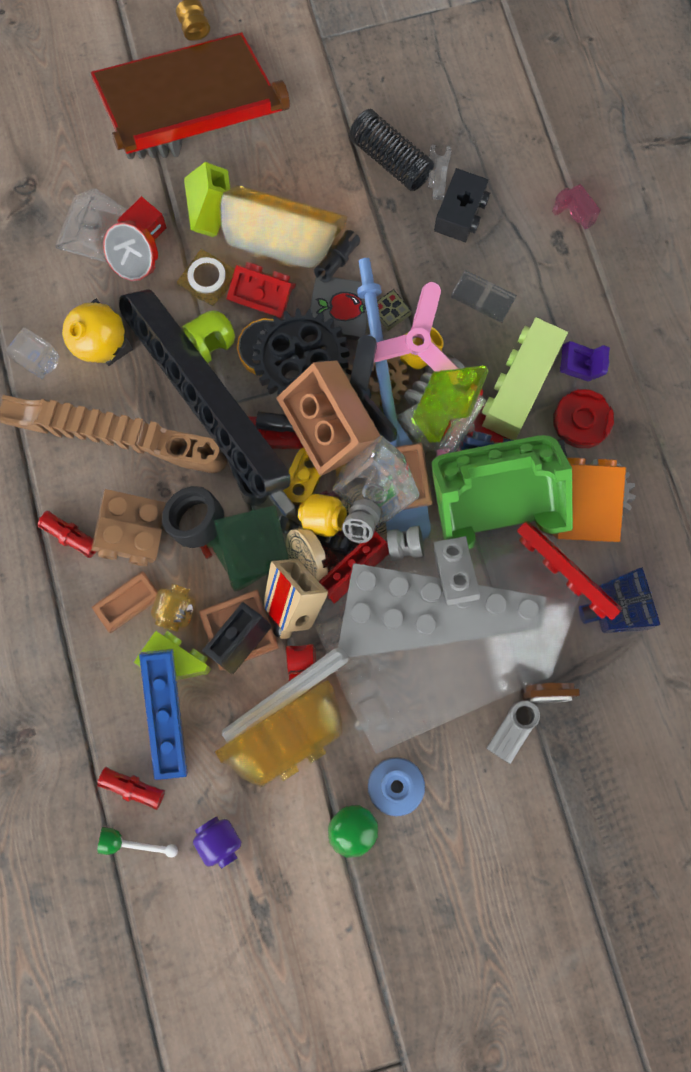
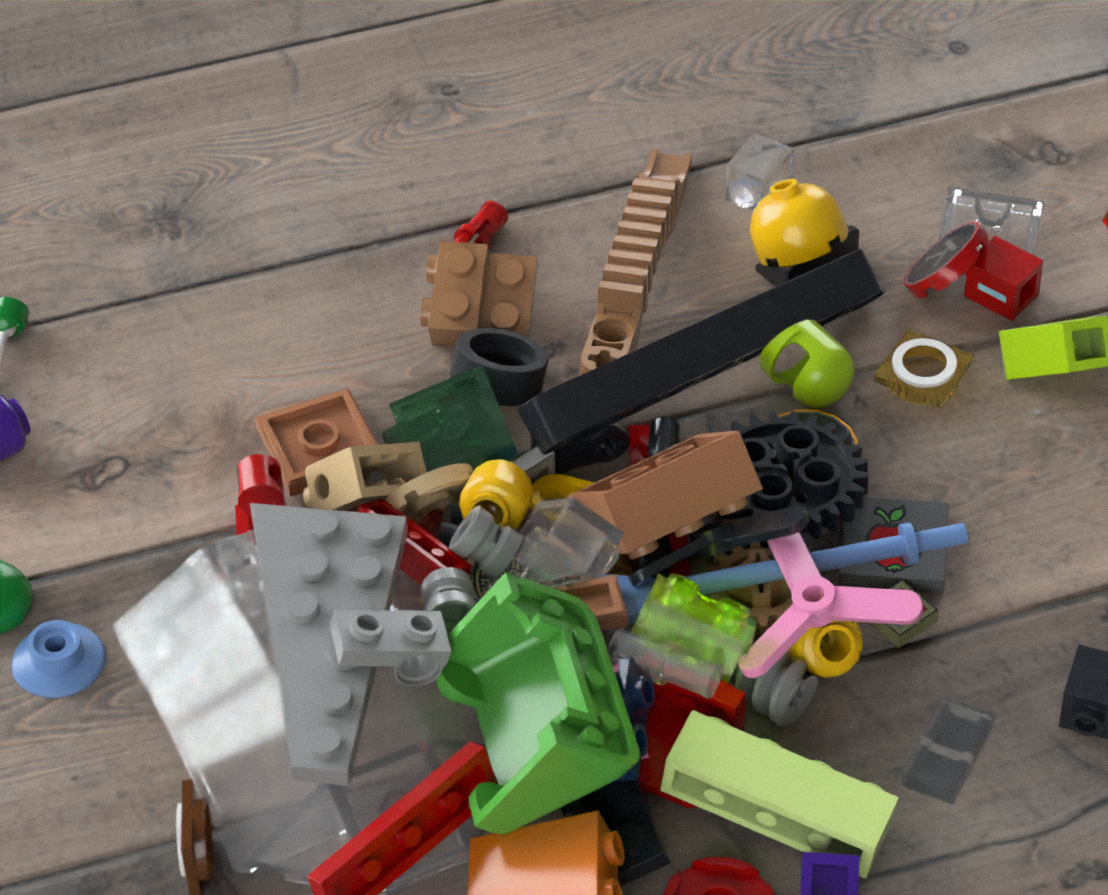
camera: 90 degrees right, 30 degrees down
(125, 602) = (367, 316): nougat tile -> none
(131, 788) = (70, 357): red pin -> none
(163, 714) = (186, 351): blue tile -> none
(173, 608) = (354, 359): clear yellow head -> none
(186, 664) = (275, 359): lime slope -> none
(237, 638) = (298, 427): black slope -> none
(260, 290) = (912, 432): red bracket -> none
(278, 227) = (1025, 432): clear yellow windscreen -> none
(286, 738) = (140, 488): clear yellow windscreen -> none
(287, 693) = (203, 471): light grey axle -> none
(337, 256) = (986, 524): black pin -> none
(511, 733) = (134, 798): light grey piece -> none

